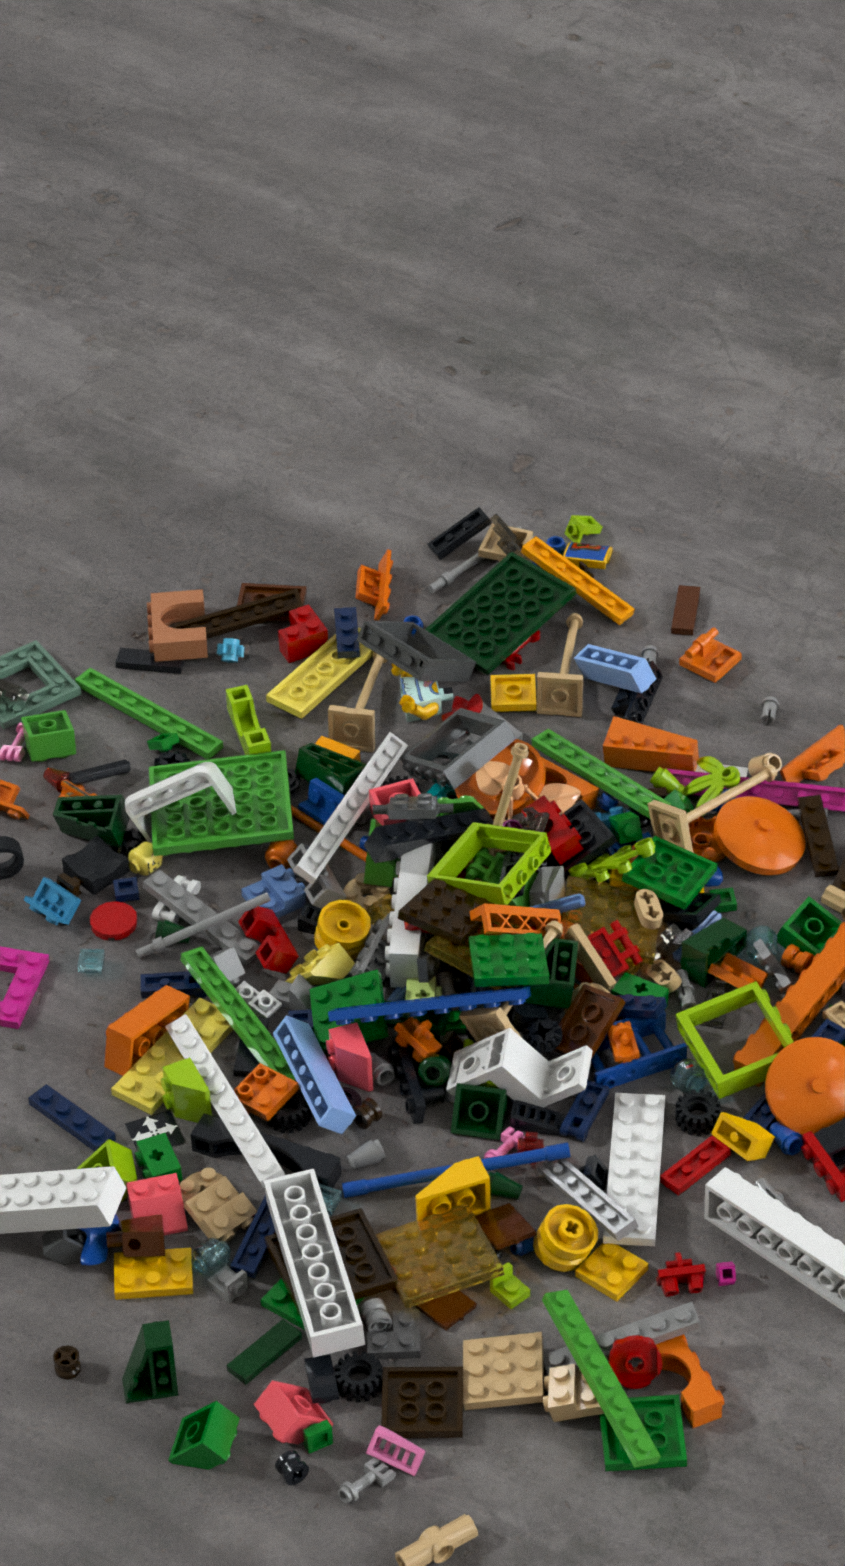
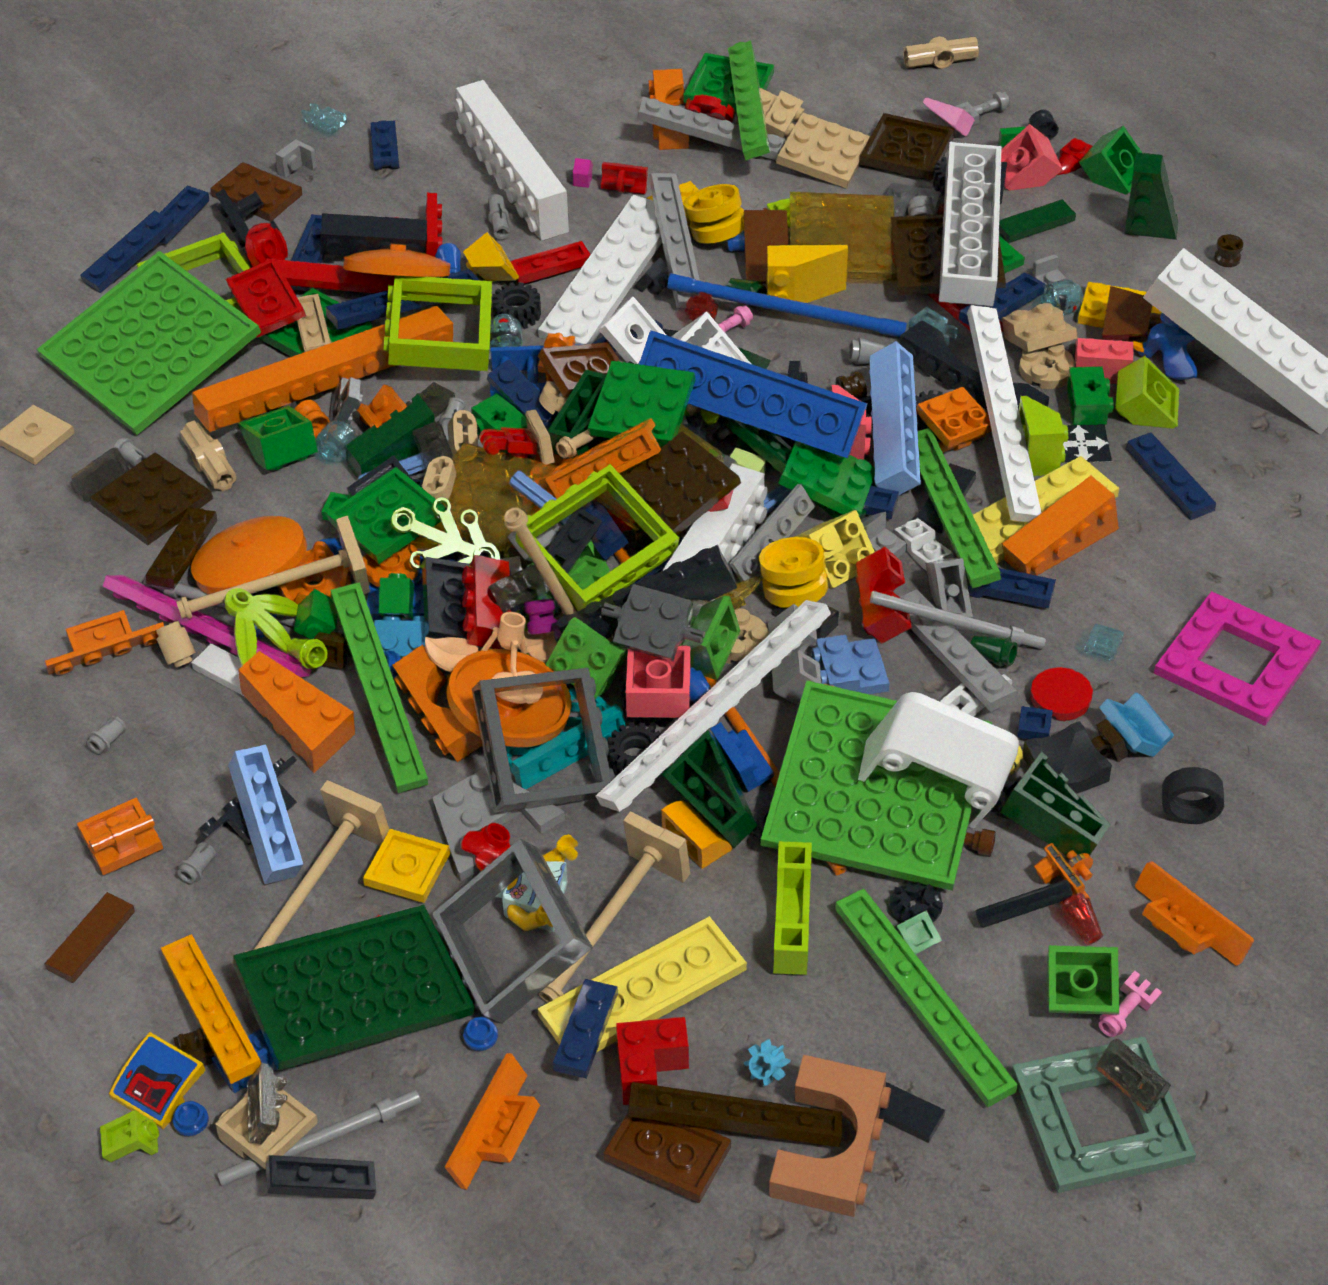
camera: 160 degrees left, 5 degrees up
(251, 1449) = (1072, 154): none -> red plate

